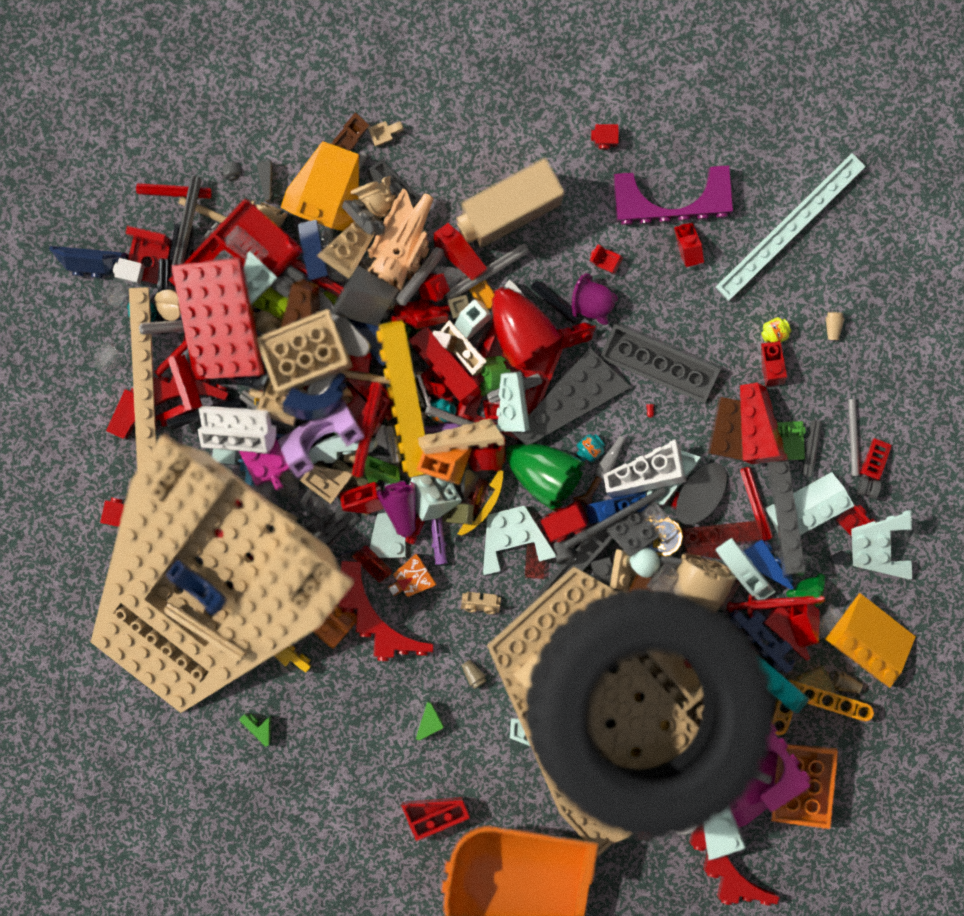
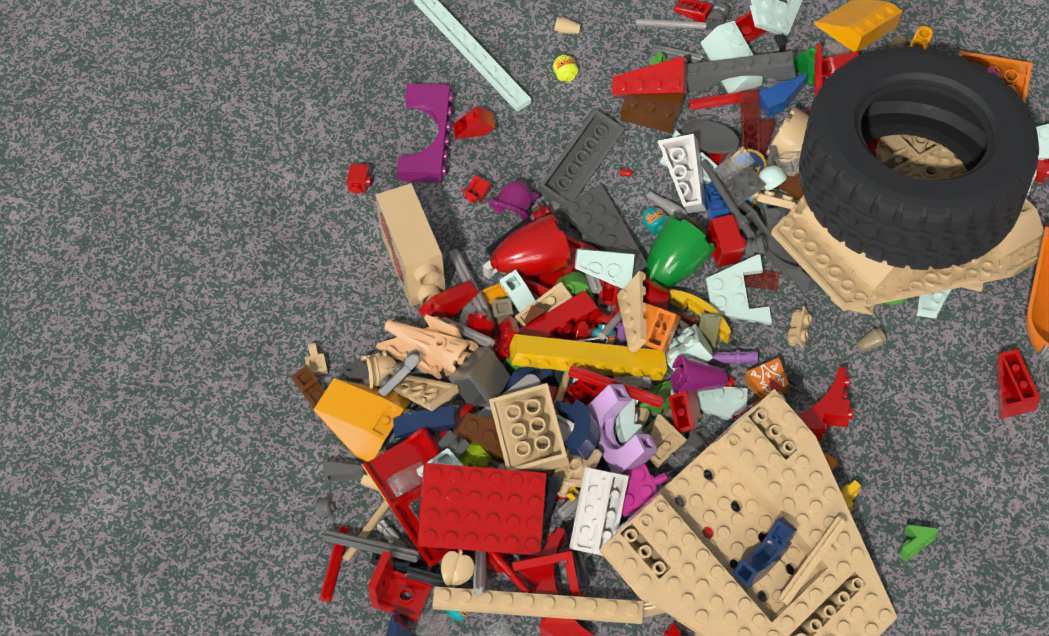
camera: 85 degrees left, 30 degrees down
(128, 270) = (413, 607): white brick -> none
(430, 722) = (918, 383): bright green slope -> none
(745, 570) = (782, 103): light aqua slope -> none
(773, 364) = (596, 71): red slope -> none

